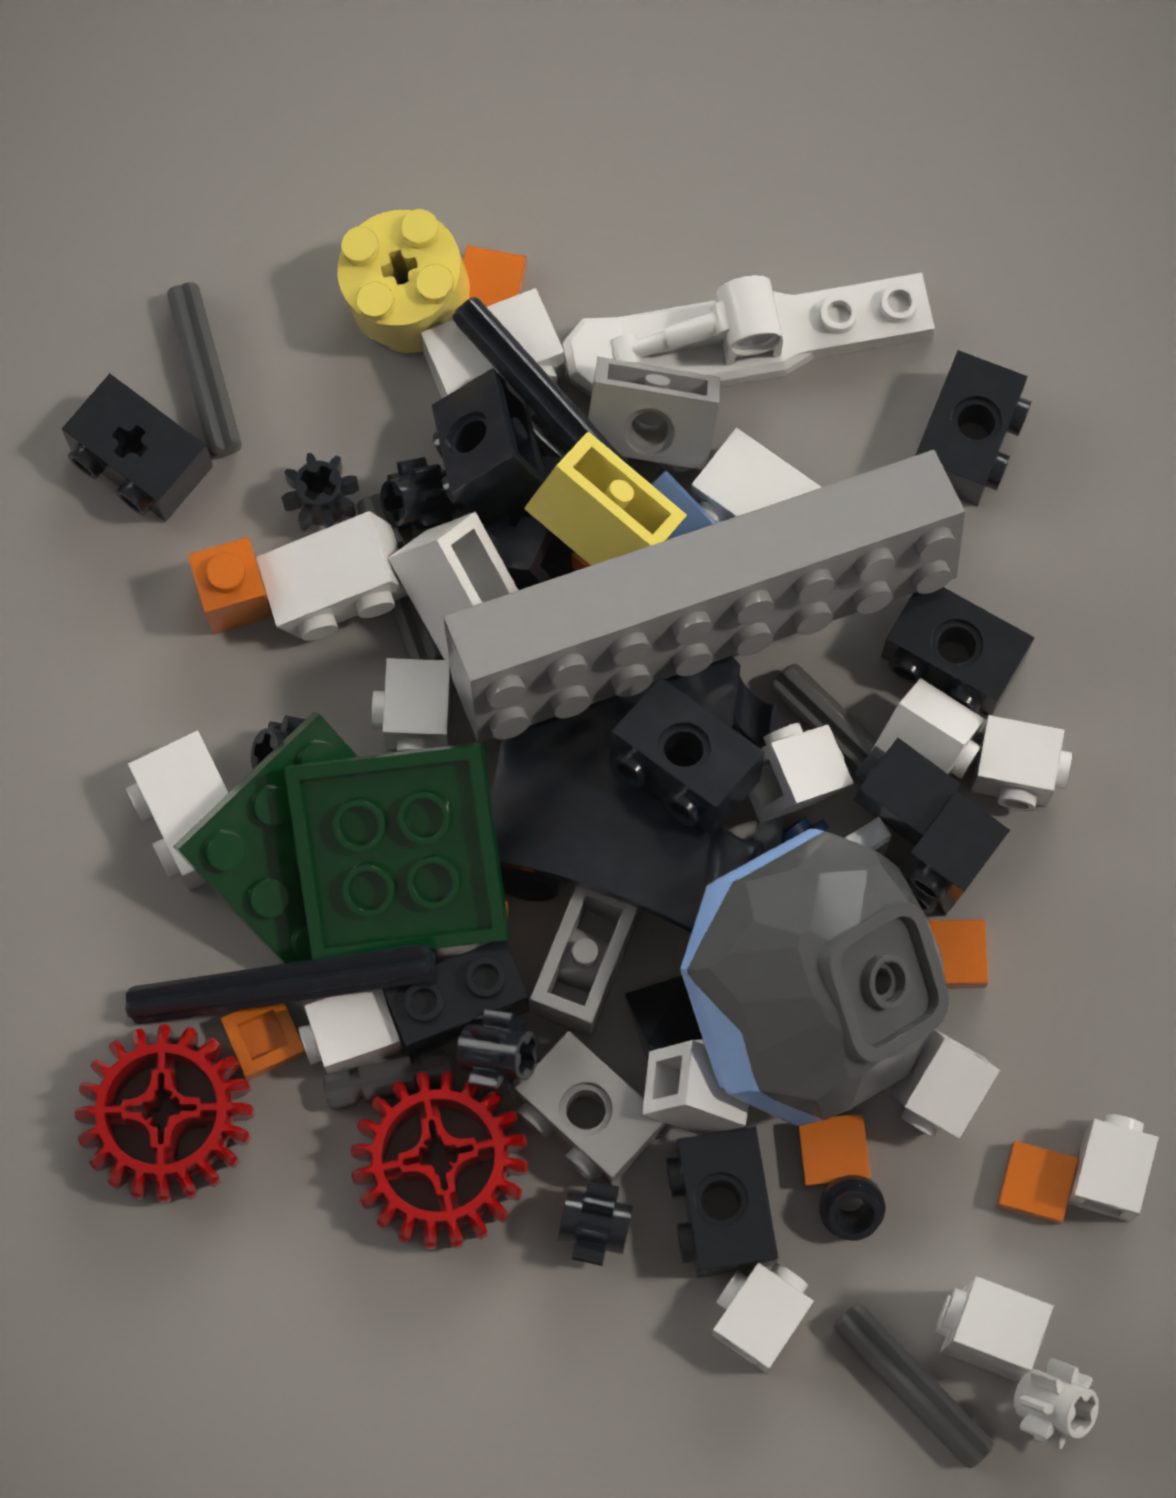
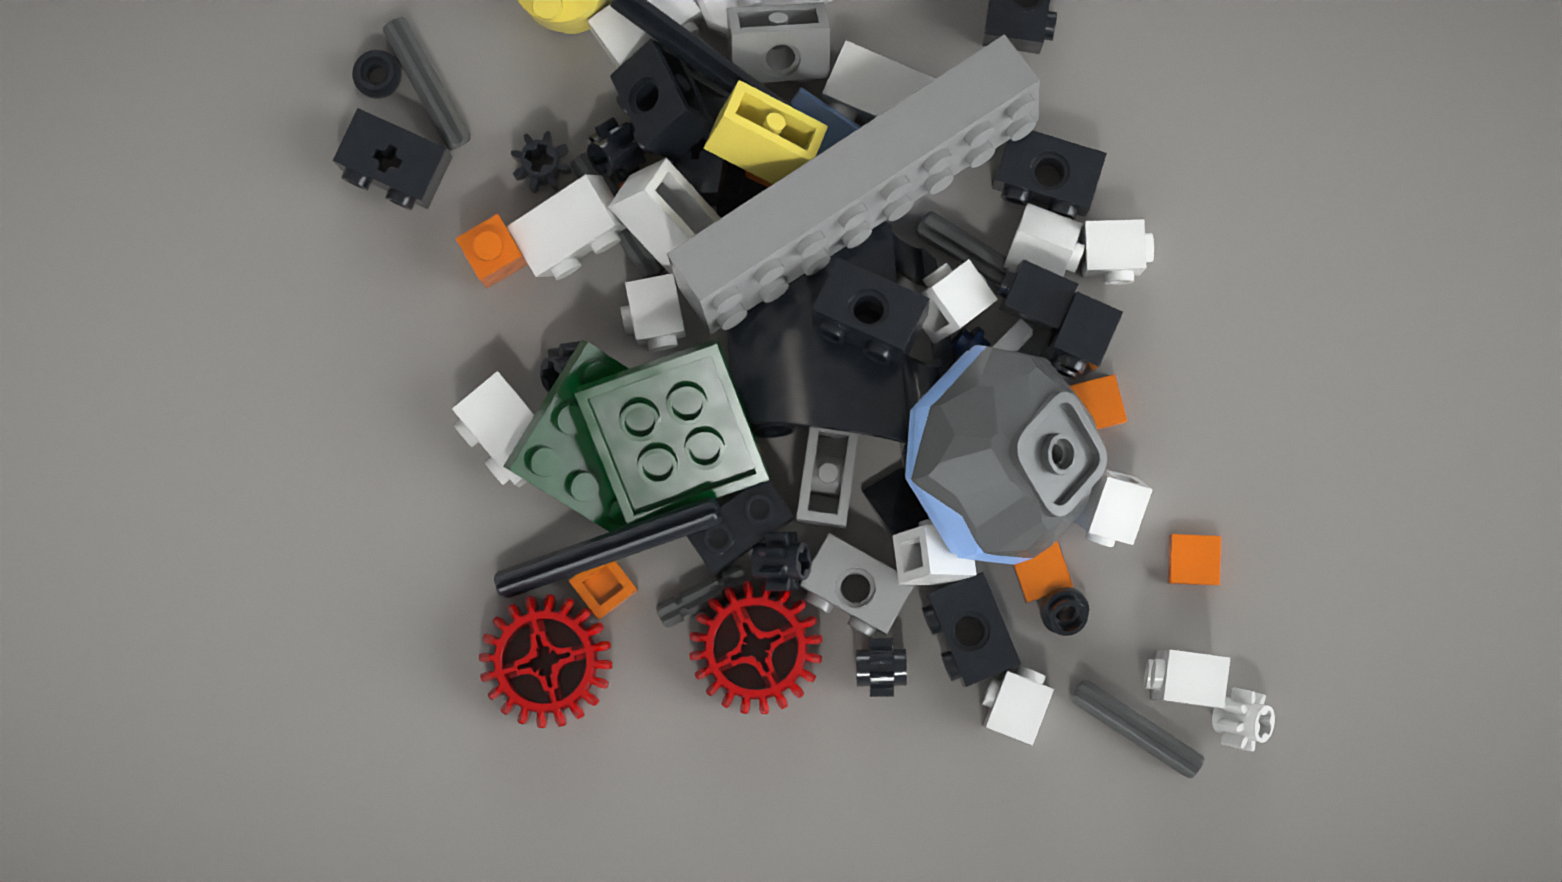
camera: 10 degrees left, 10 degrees up
(143, 328) = (370, 61): none -> black plate
(349, 1031) = (666, 569): white brick -> none
(1113, 1167) = (1248, 536): white brick -> none

